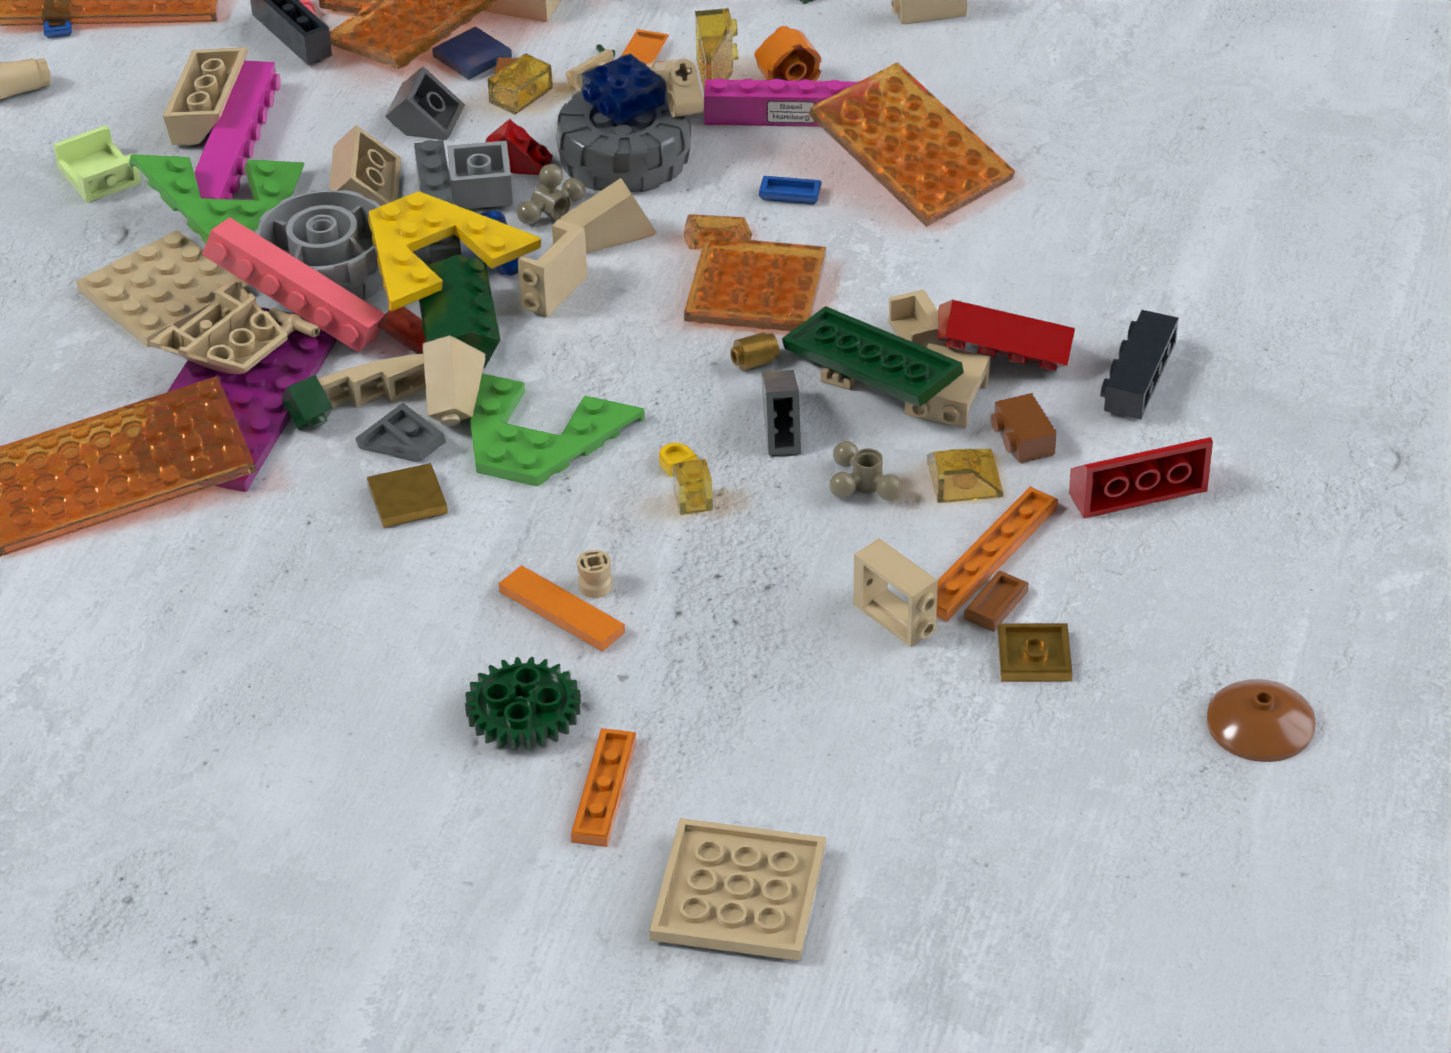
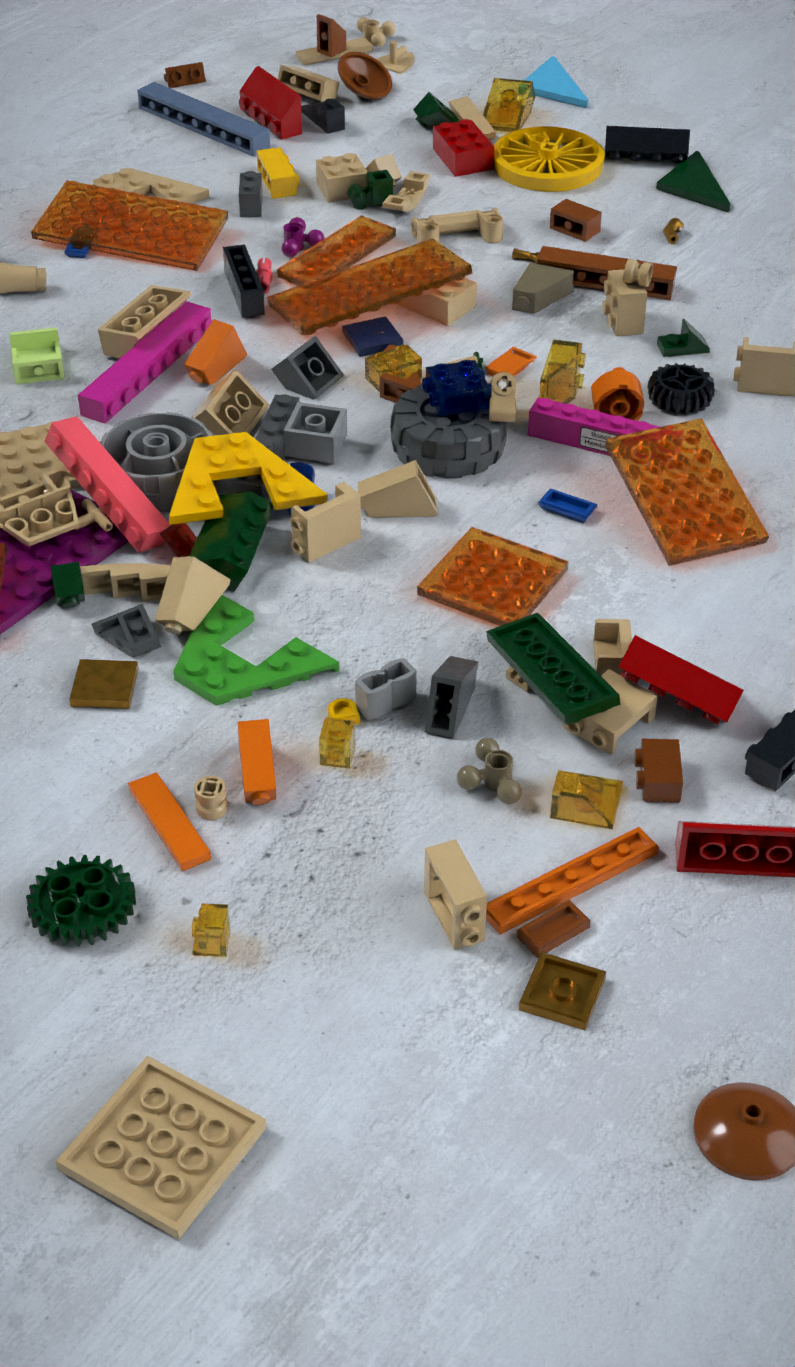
camera: 20 degrees right, 0 degrees up
(178, 188) = (72, 384): bright green wing -> none
(310, 113) = (215, 353): none -> orange slope
(524, 152) = (362, 421): red slope -> none
(540, 106) = (393, 387): none -> dark orange slope
(548, 198) = (361, 463): dark tan piece -> none
(603, 787) = (106, 1002): orange tile -> none
(623, 525) = (256, 761): none -> orange slope
(673, 693) = (211, 930): none -> clear yellow brick
(714, 421) = (385, 688): none -> light grey brick
(718, 226) = (486, 521): clear orange slope -> none
(754, 350) = (459, 636): pearl gold brick -> none
(846, 34) = (681, 388): none -> black gear

